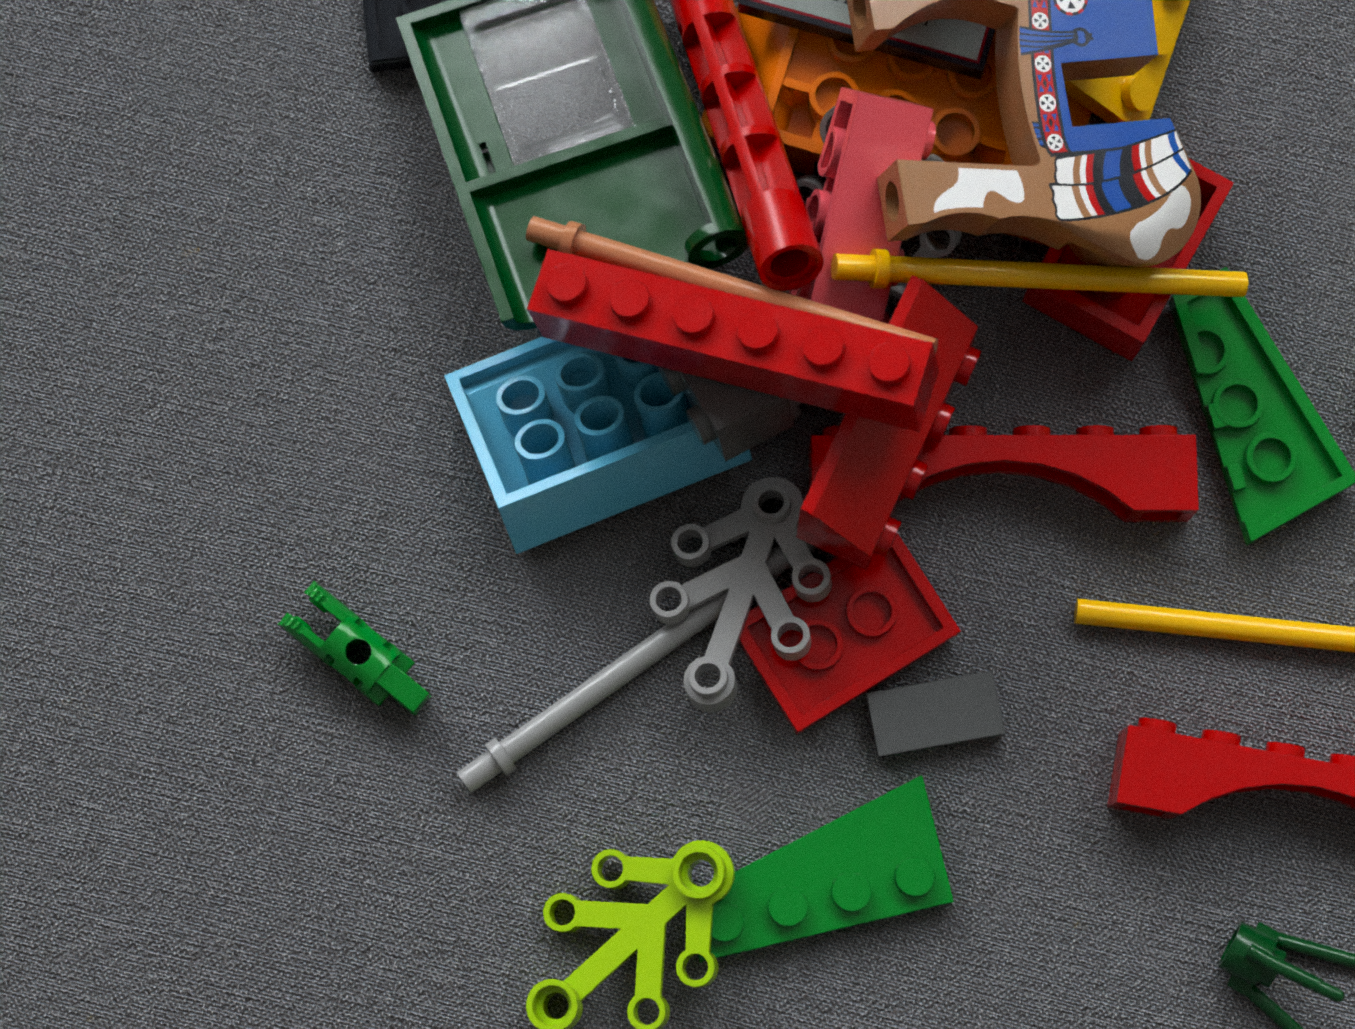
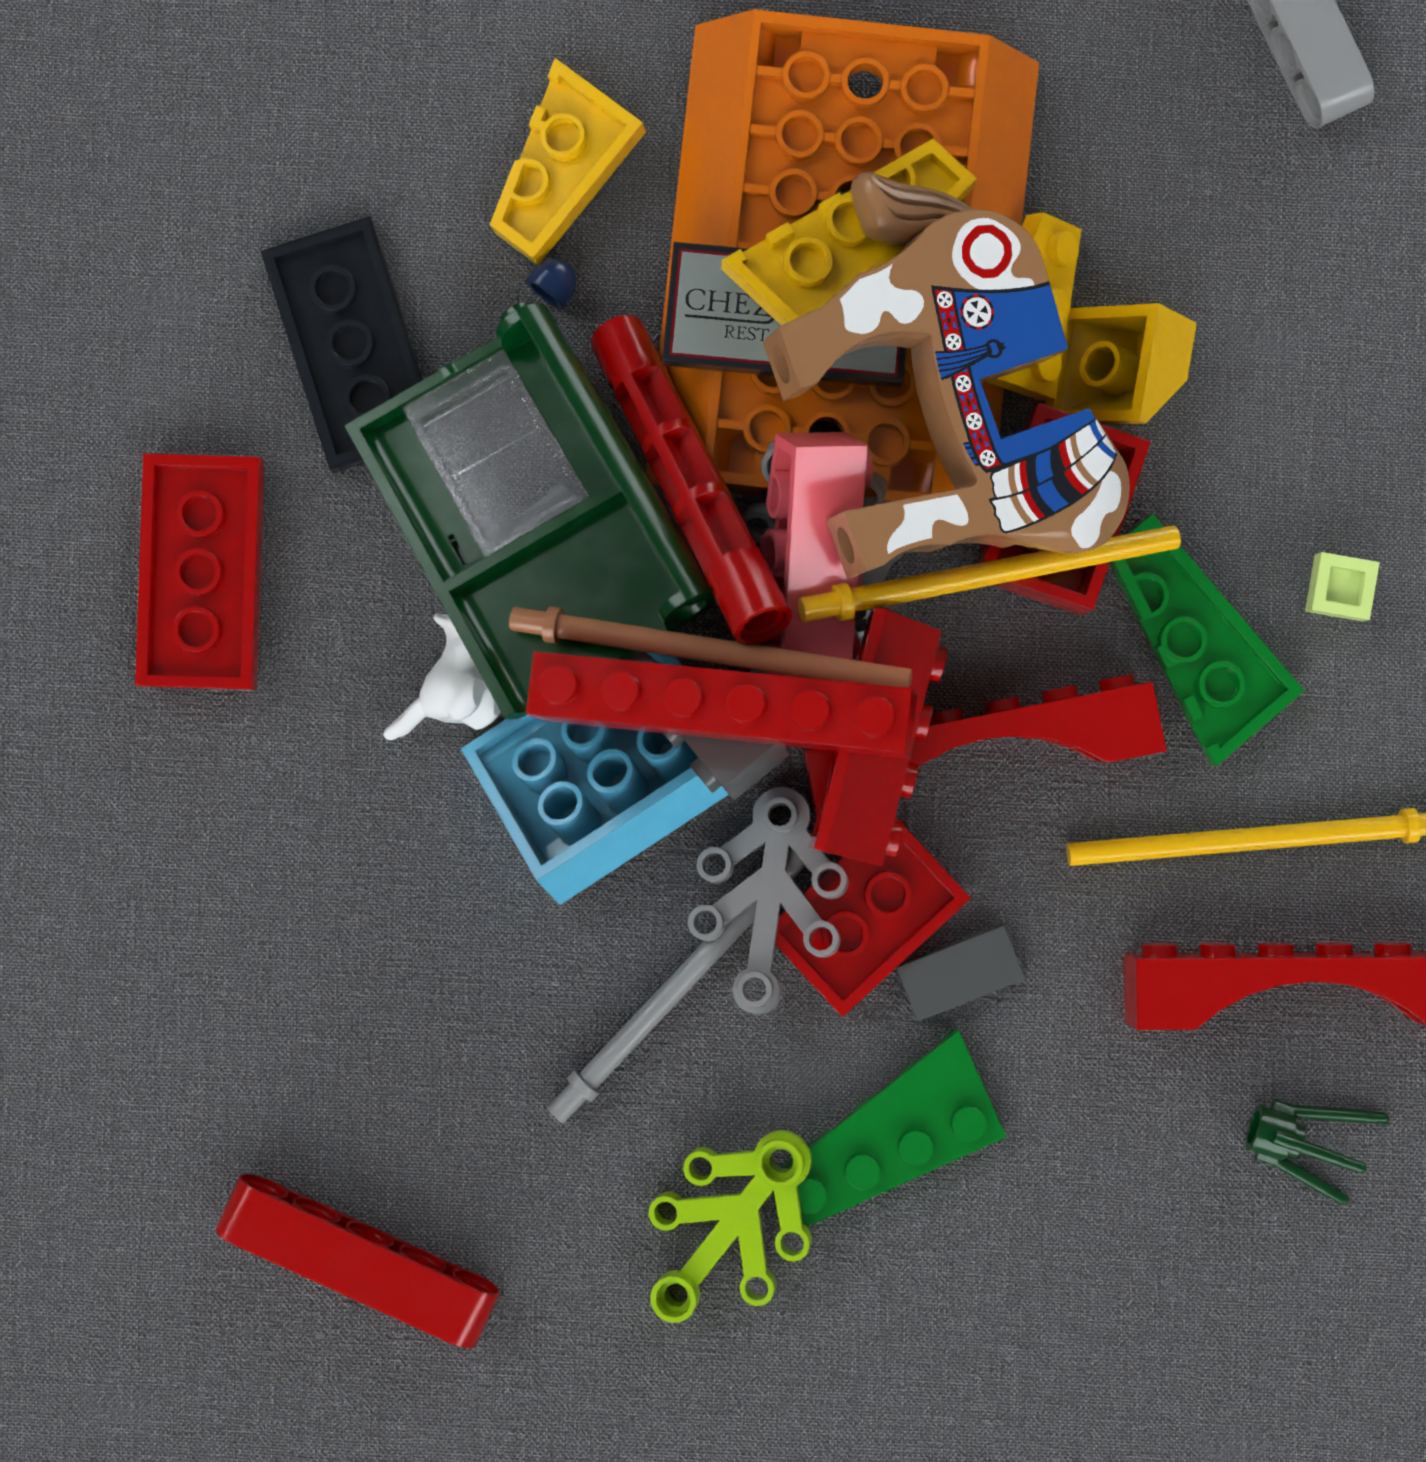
camera: 10 degrees left, 10 degrees up
(210, 142) = (199, 571): none -> red plate
(215, 897) = (357, 1260): none -> red beam
(380, 675) = (466, 1025): green hinge -> none
(451, 308) = (450, 690): none -> white animal
(1227, 100) = (1123, 361): none -> yellow slope

